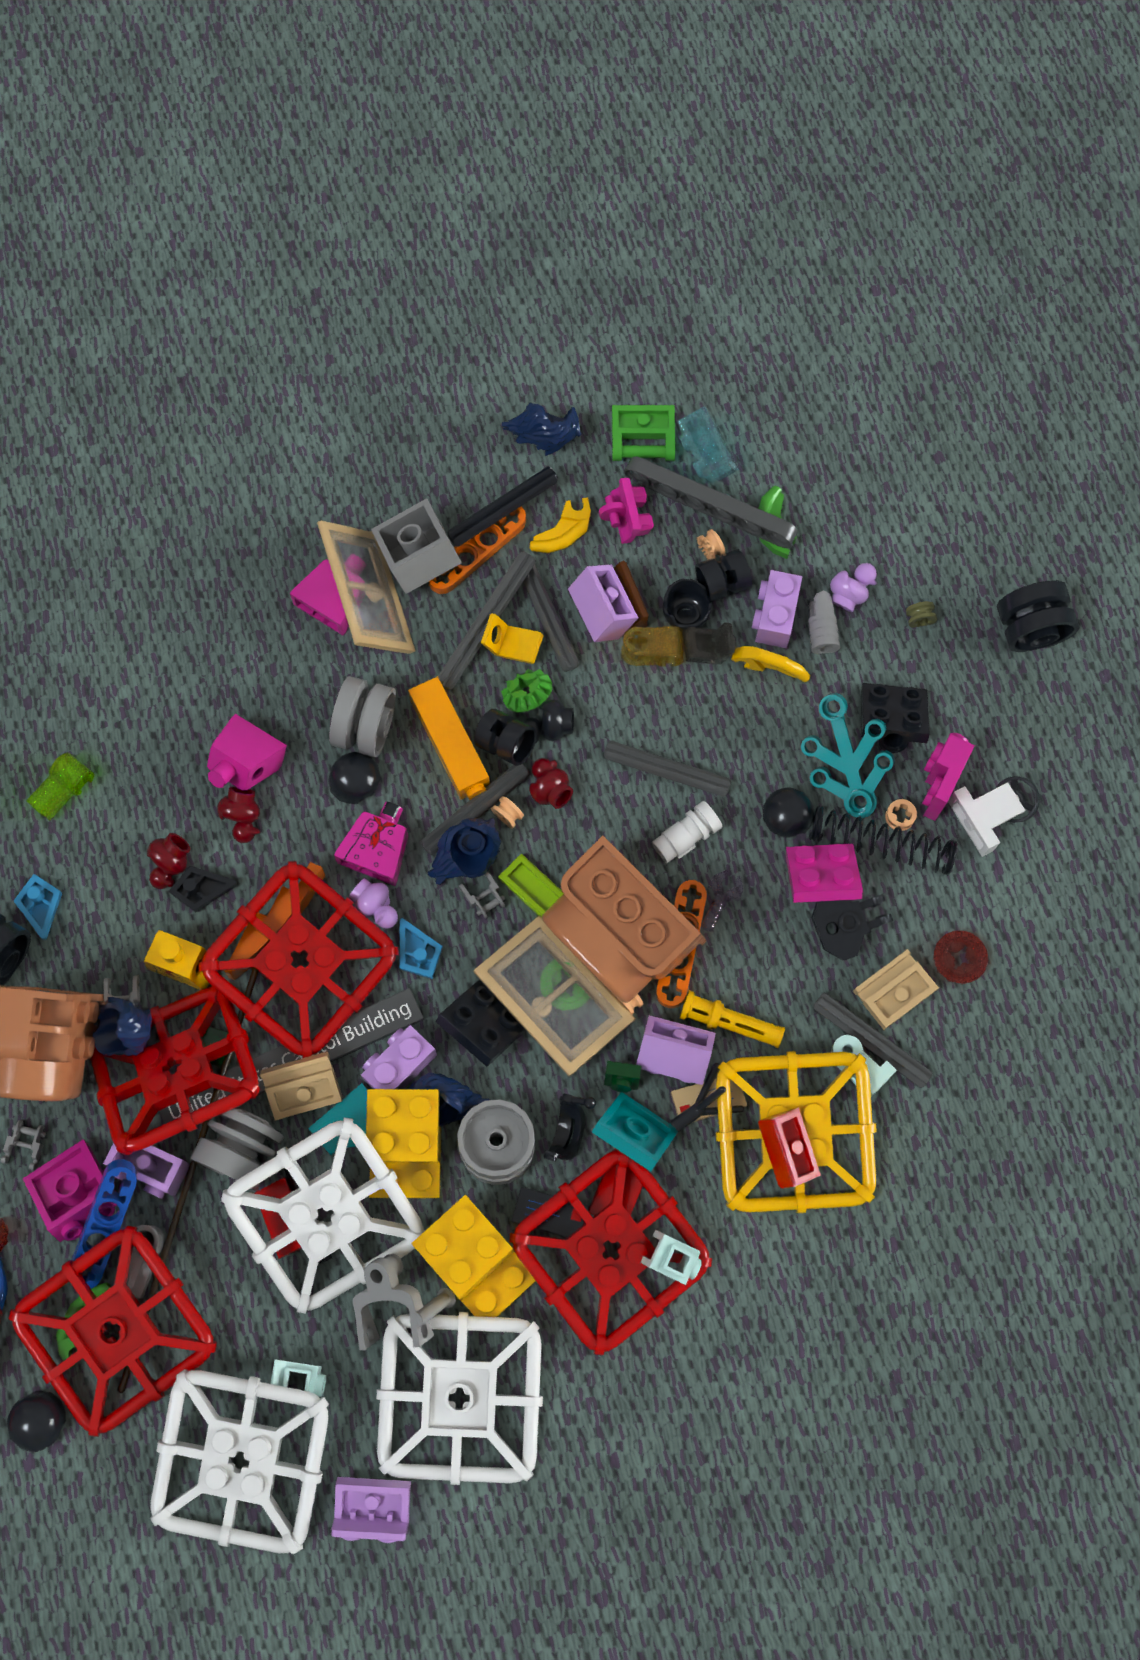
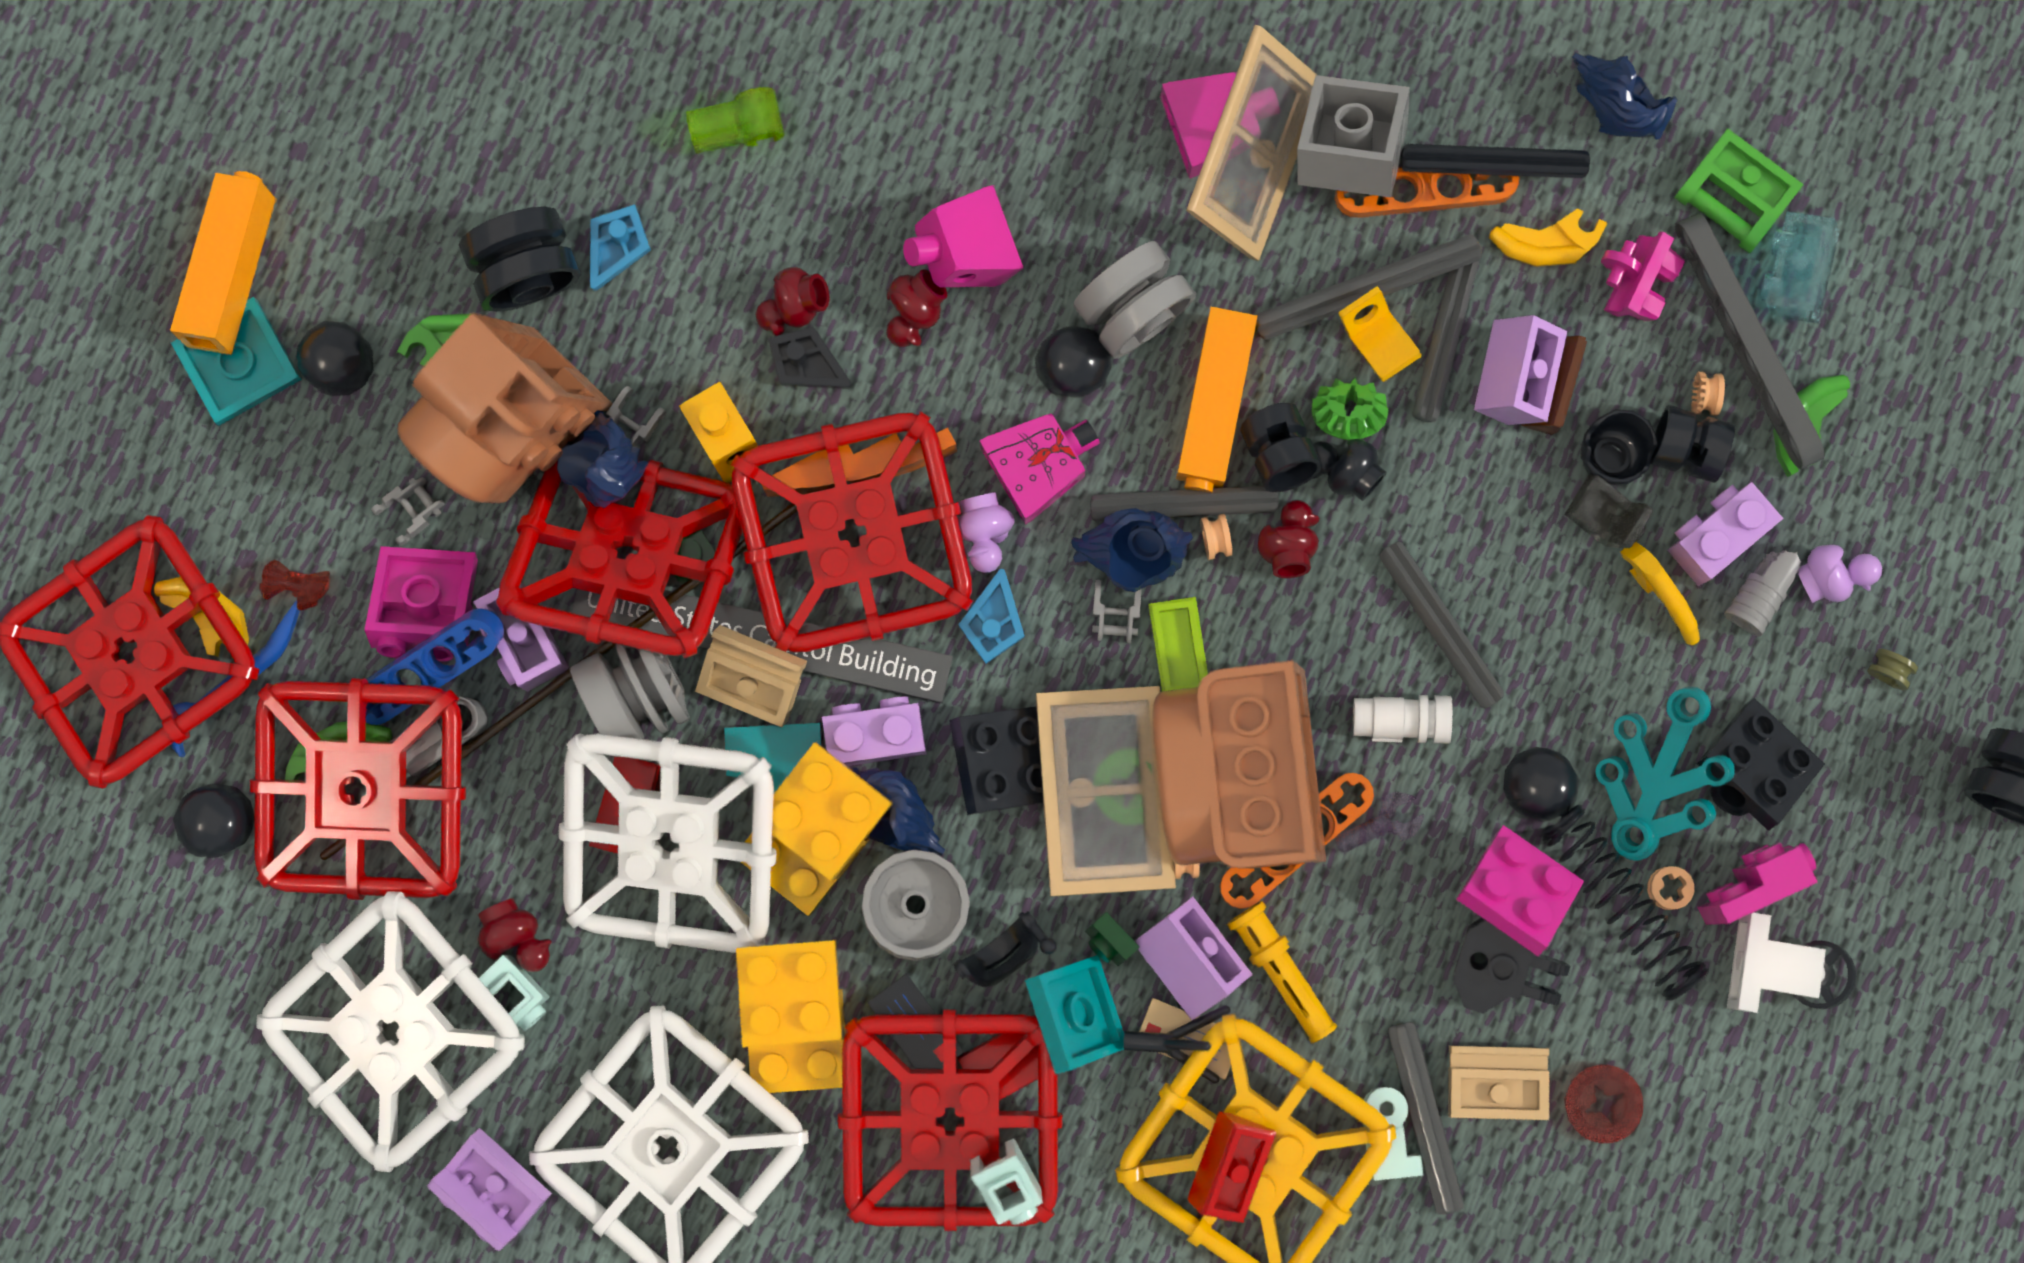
camera: 40 degrees right, 10 degrees up
(266, 1341) = (512, 927): none -> dark red animal
(384, 1286) = (674, 969): light grey piece -> none
(655, 644) = (1544, 470): clear yellow piece -> none

